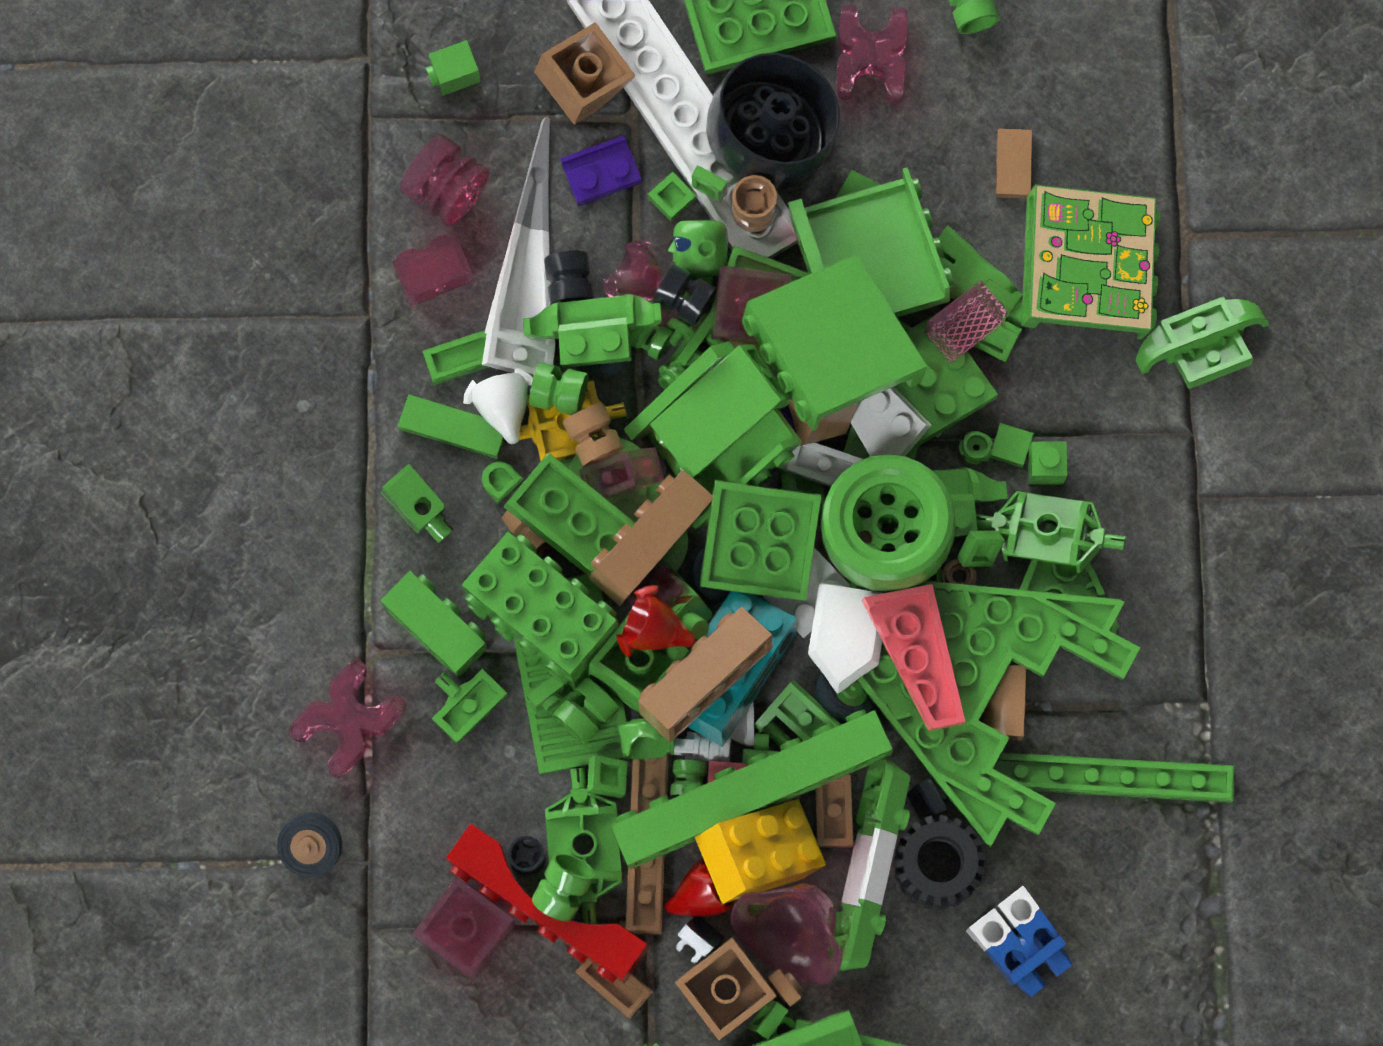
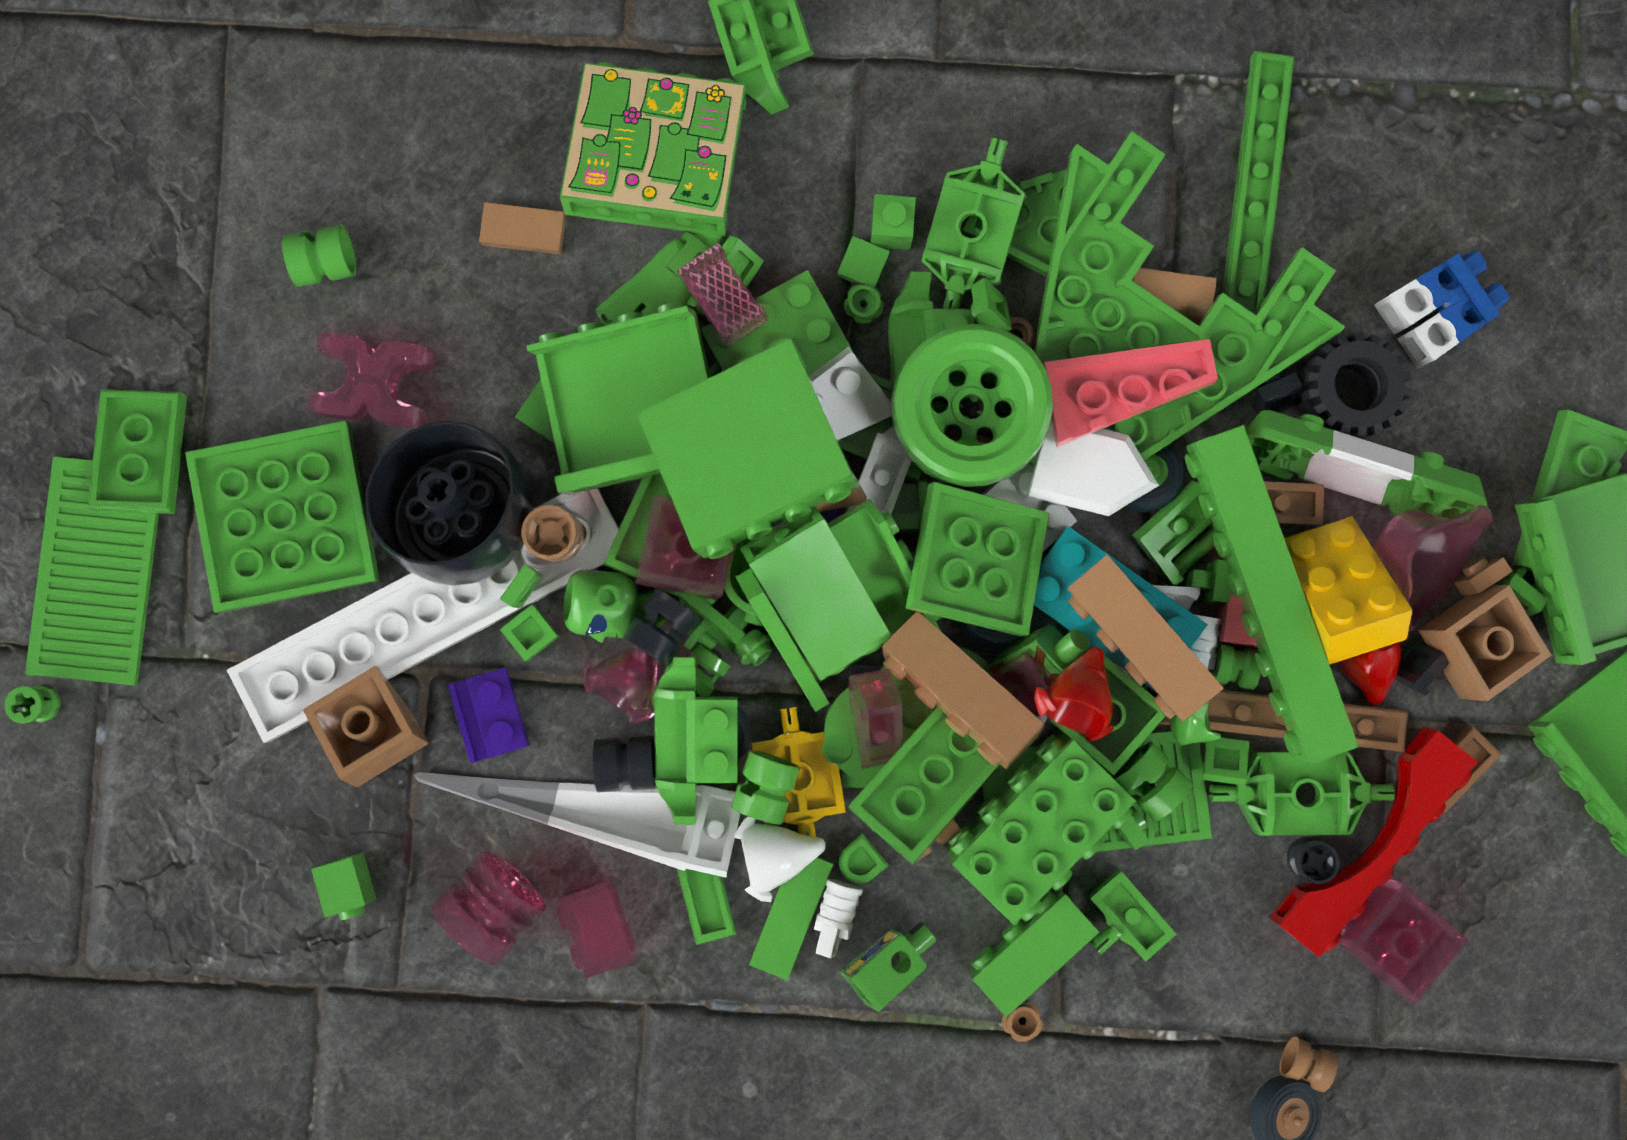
camera: 85 degrees left, 10 degrees up
(347, 718) = (1137, 1061): clear pink piece -> none
(349, 870) = (1308, 1064): none -> medium nougat wheel
(374, 613) = (1026, 1031): none -> medium nougat plate
(452, 461) = (836, 915): none -> white hinge
(565, 884) = (1368, 823): bright green wheel -> none
(588, 423) = (814, 755): medium nougat wheel -> none

